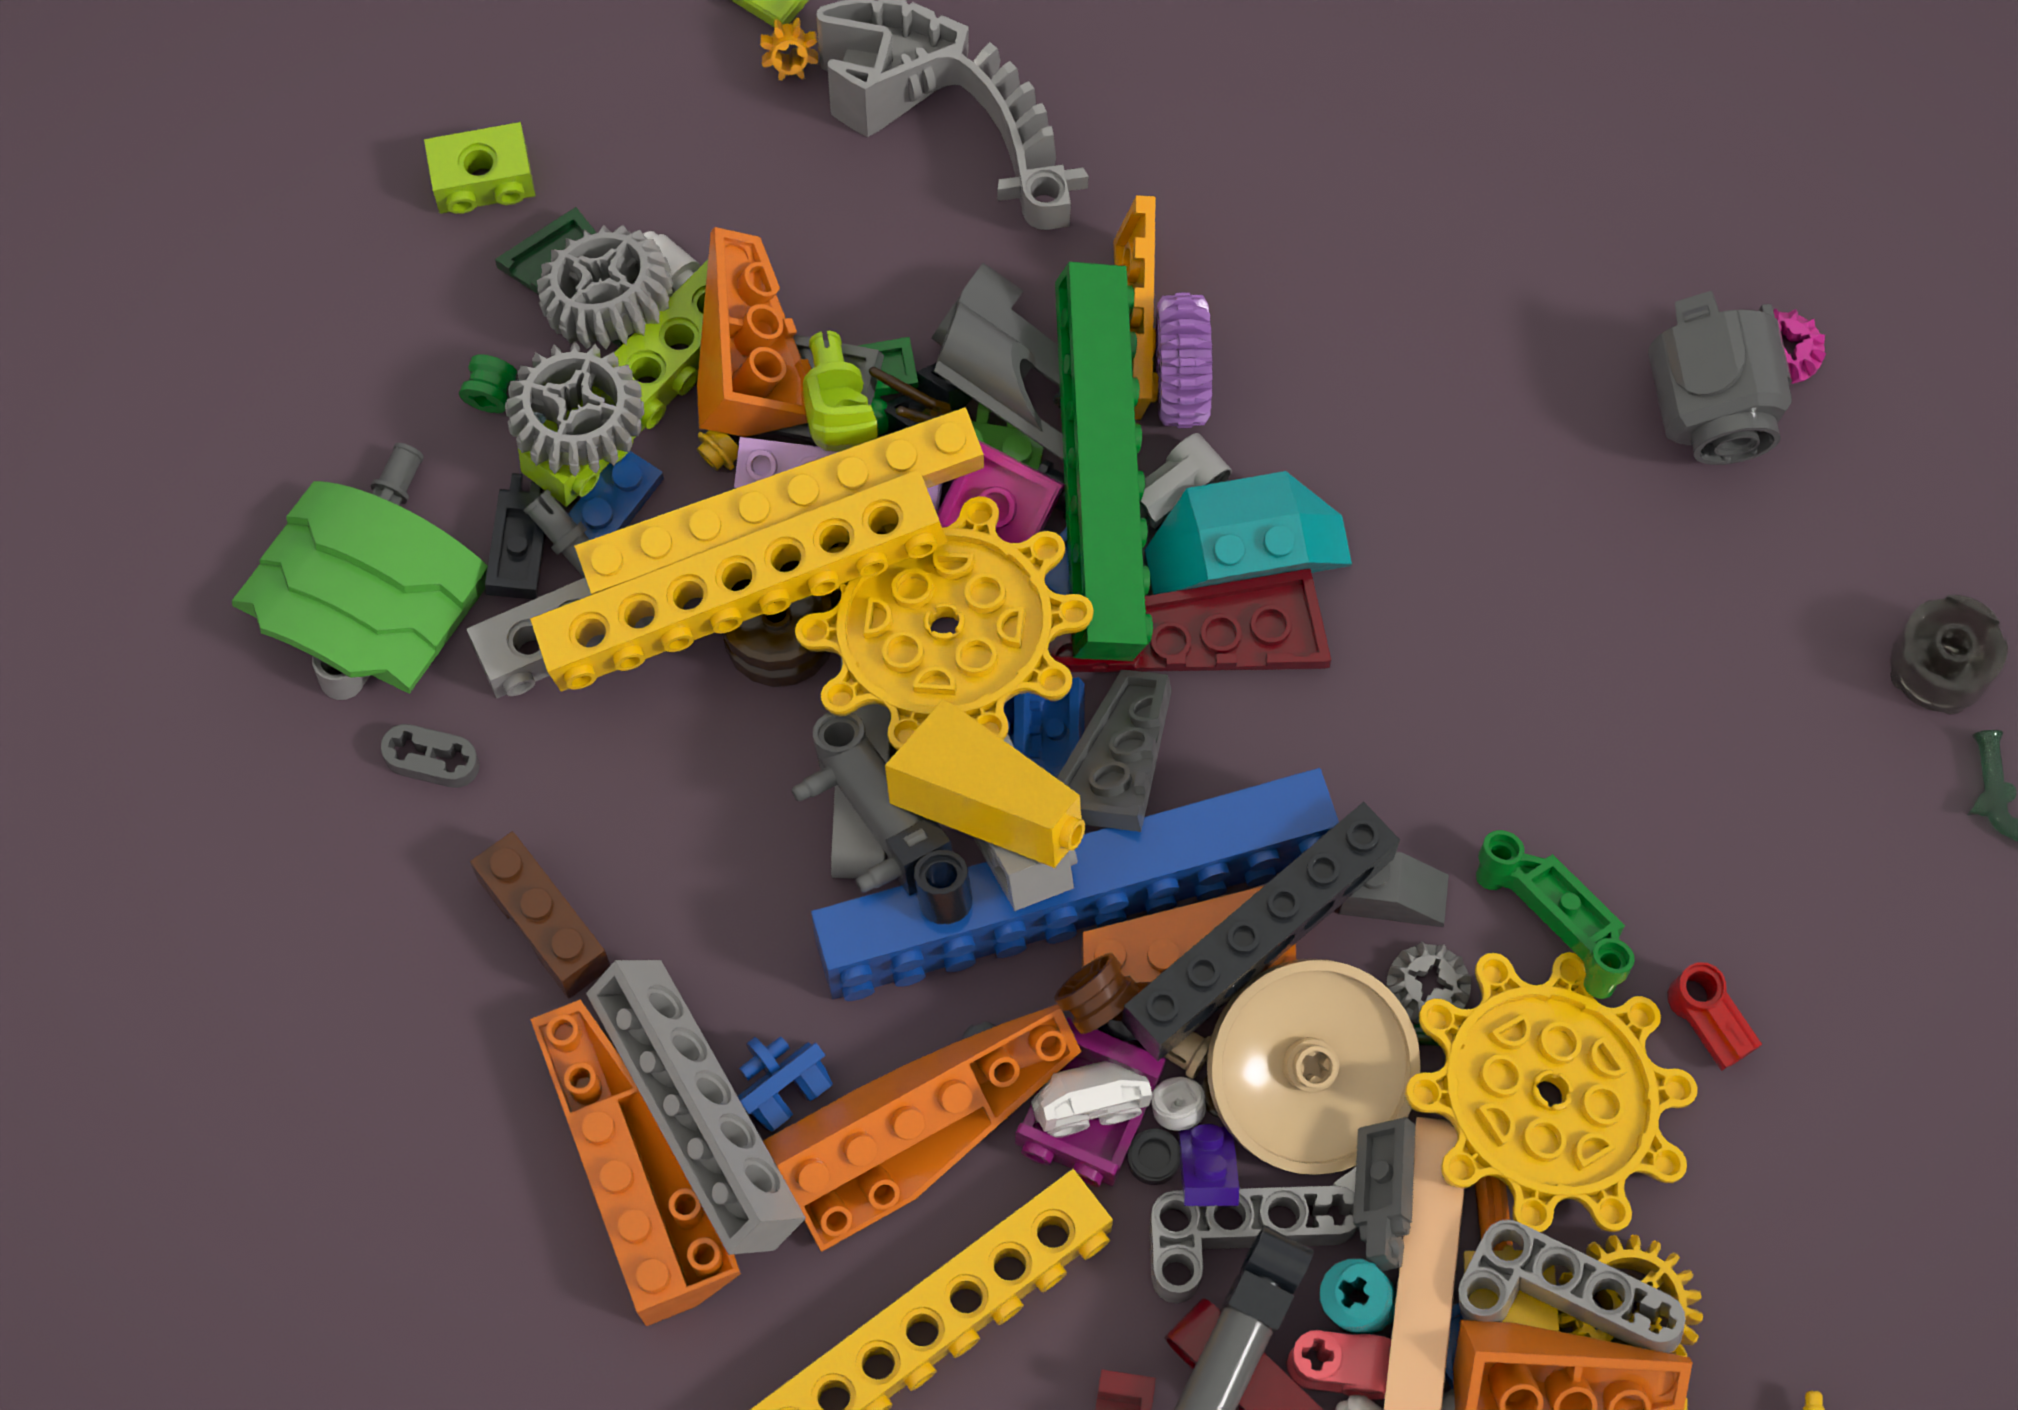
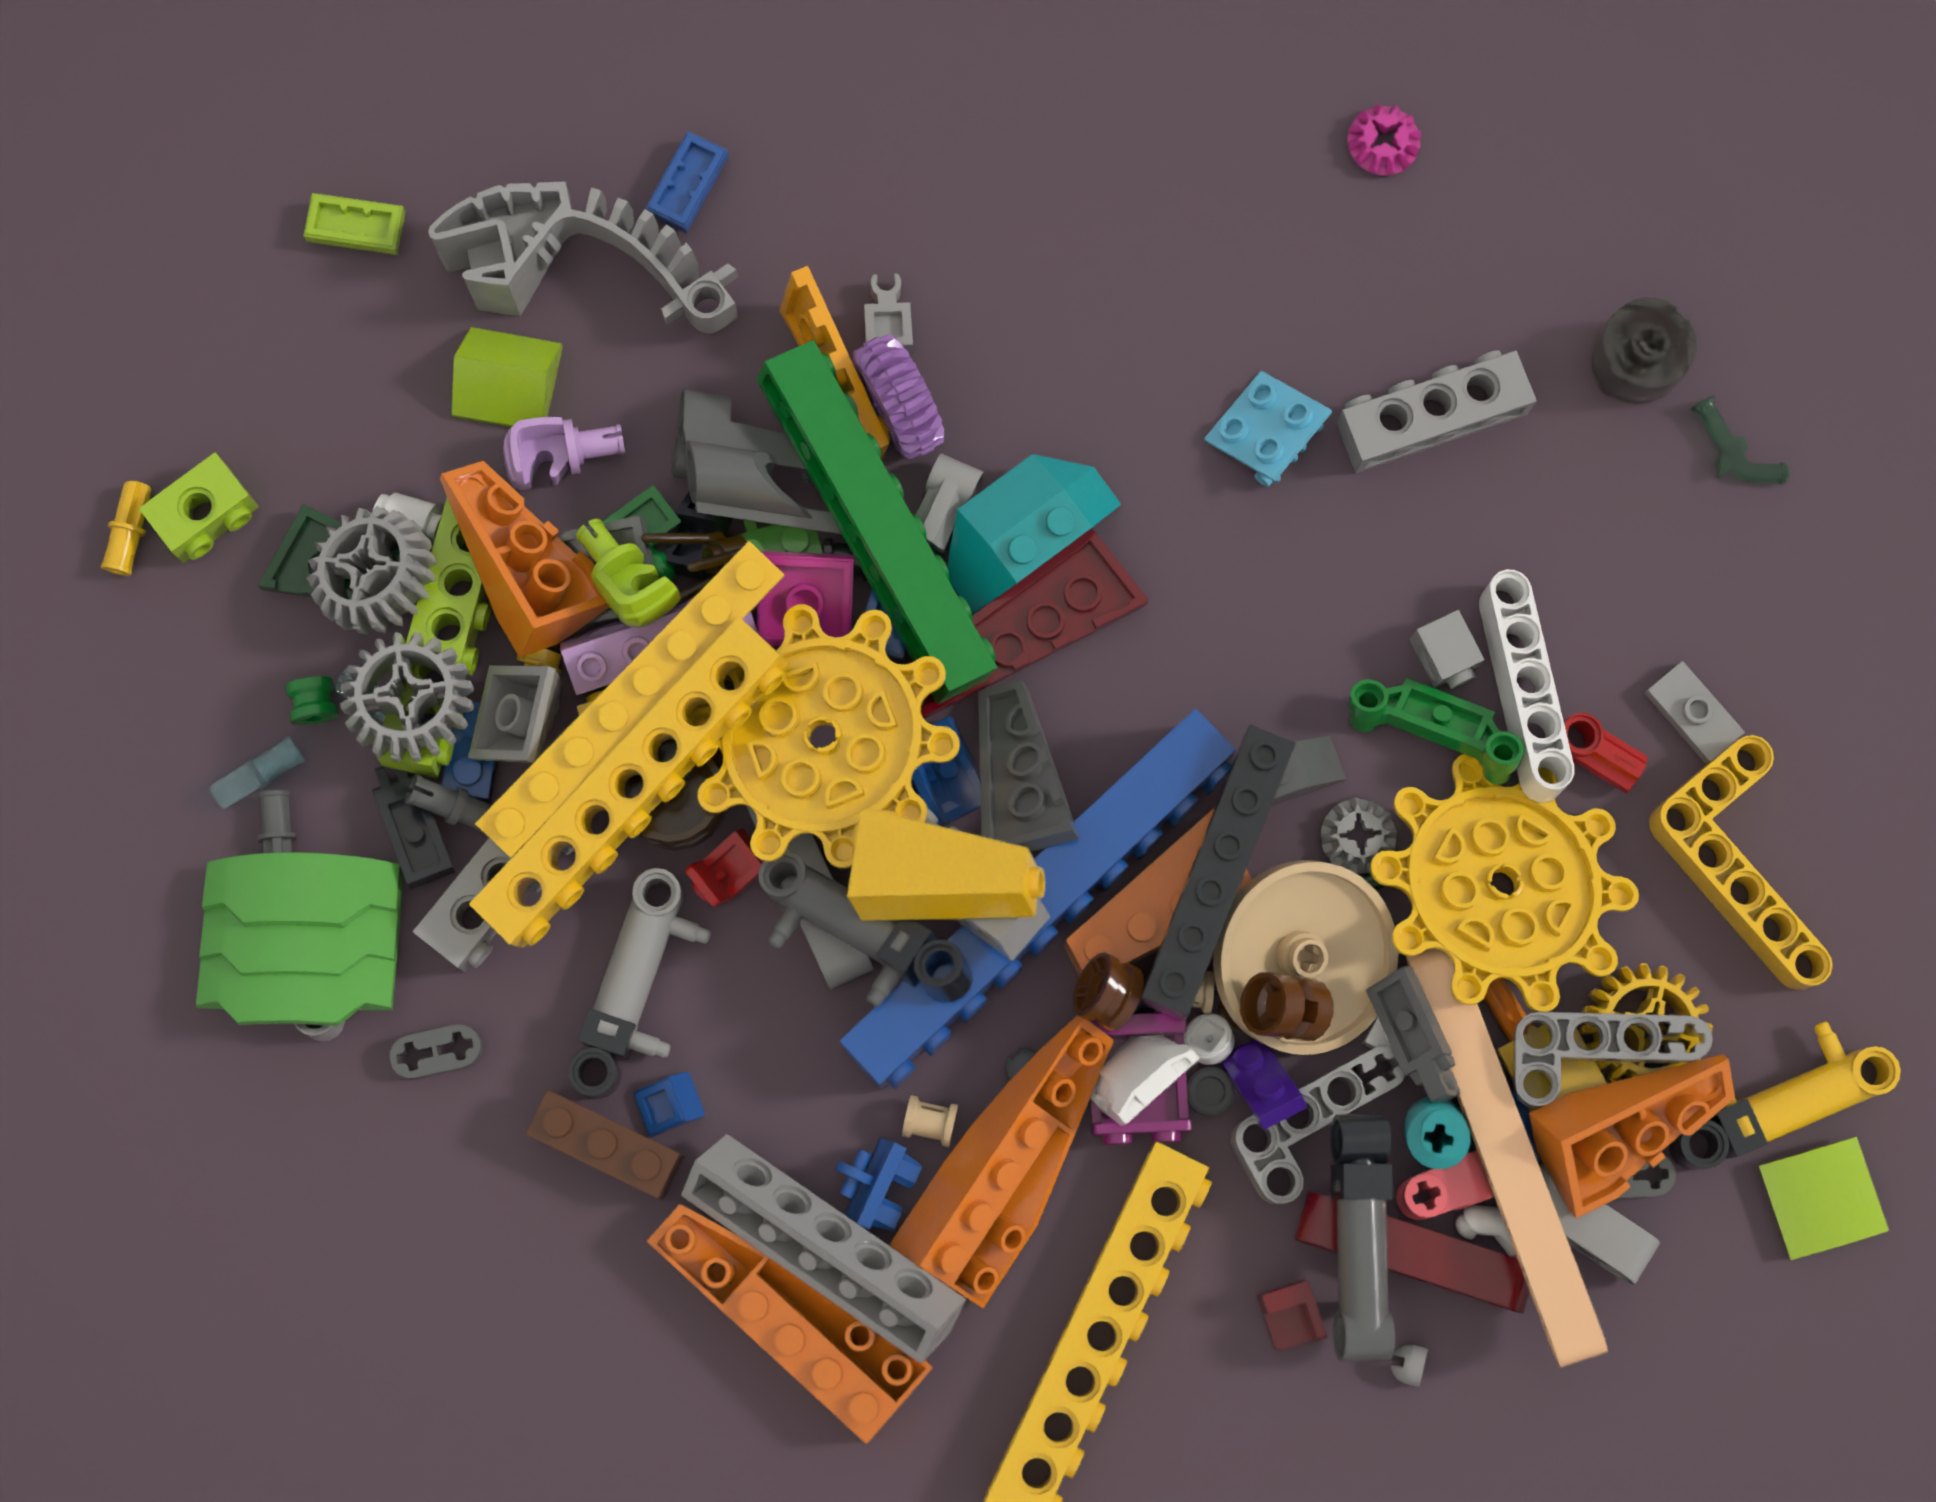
camera: 30 degrees left, 10 degrees up
(402, 159) = (126, 529): none -> yellow axle
(403, 425) = (256, 773): none -> clear light blue axle
(605, 808) = (613, 1022): none -> light grey piece
(622, 910) = (669, 1103): none -> blue slope
(672, 474) = (515, 713): none -> light grey slope
(779, 41) = (413, 270): light orange gear -> none
(787, 720) = (725, 870): none -> red bracket
(821, 184) = (503, 377): none -> lime slope
(834, 254) = (554, 441): none -> lavender piece
(863, 1046) = (930, 1121): none -> tan bush
(1086, 86) = (687, 182): none -> blue plate
(1217, 287) = (888, 315): none -> light grey plate
(1267, 1096) = (1286, 1006): none -> reddish brown wheel
(1534, 557) = (1268, 427): none -> medium azure hinge
(1606, 847) = (1447, 651): none -> light grey brick
(1660, 935) = (1533, 665): none -> white beam
(1684, 630) = (1372, 444): none -> light grey brick
(1721, 380) = (1355, 202): dark grey piece -> none
(1798, 1194) = (1734, 866): none -> yellow beam
(1833, 1028) = (1694, 712): none -> light grey plate

